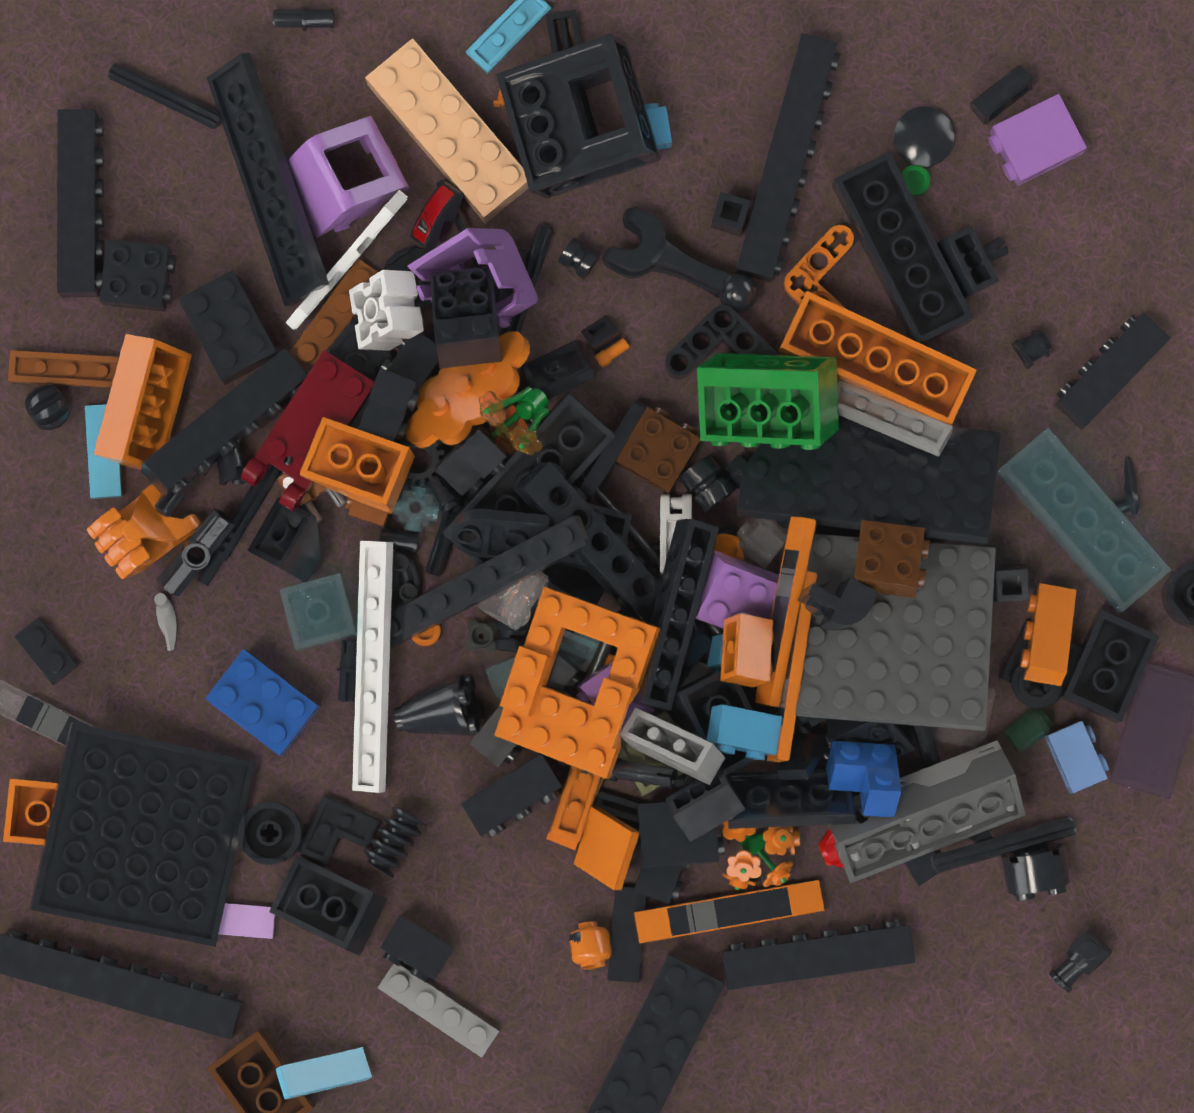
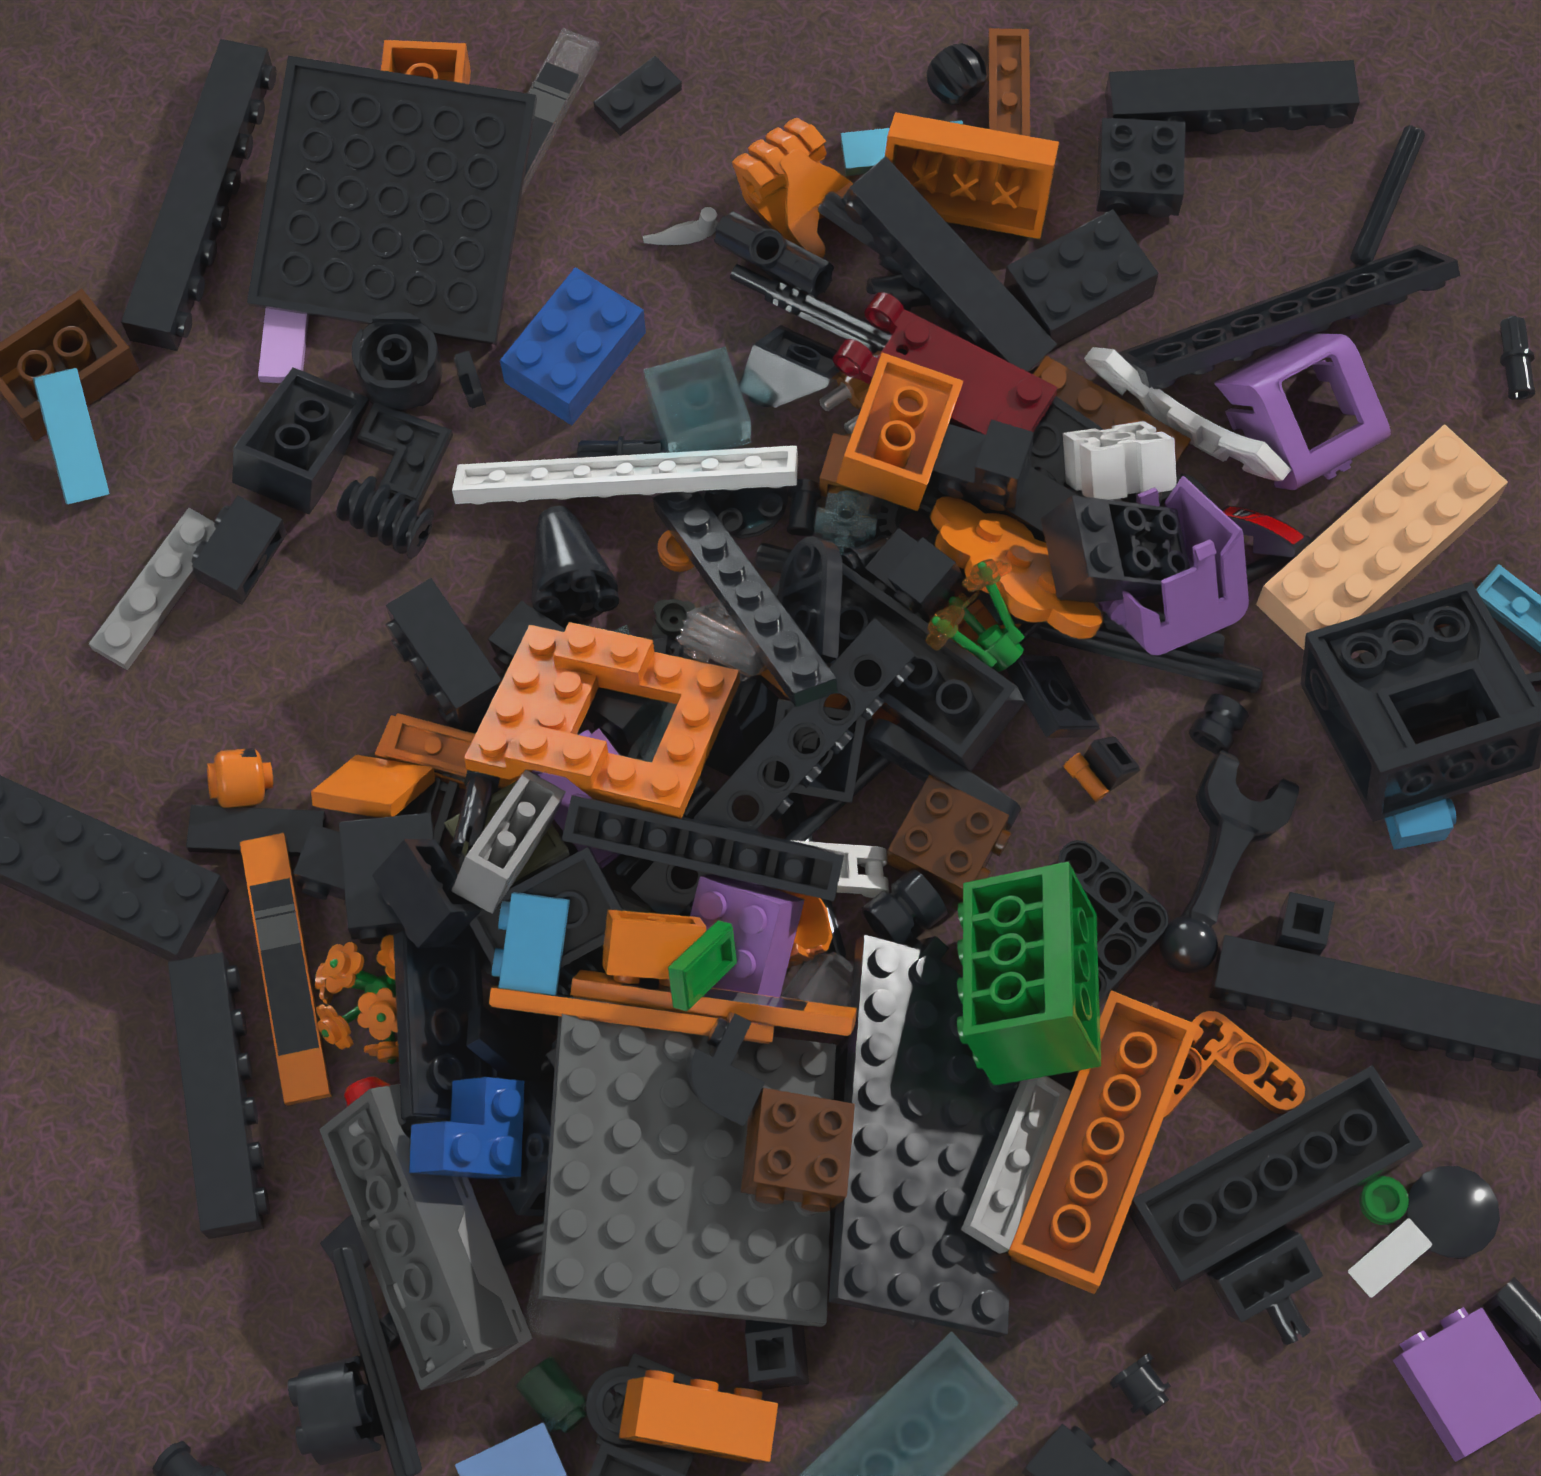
camera: 85 degrees right, 15 degrees down
(285, 780) = (469, 379): none -> black tile
(766, 616) = (702, 965): none -> green tile
(952, 180) = (1390, 1257): none -> white sticker

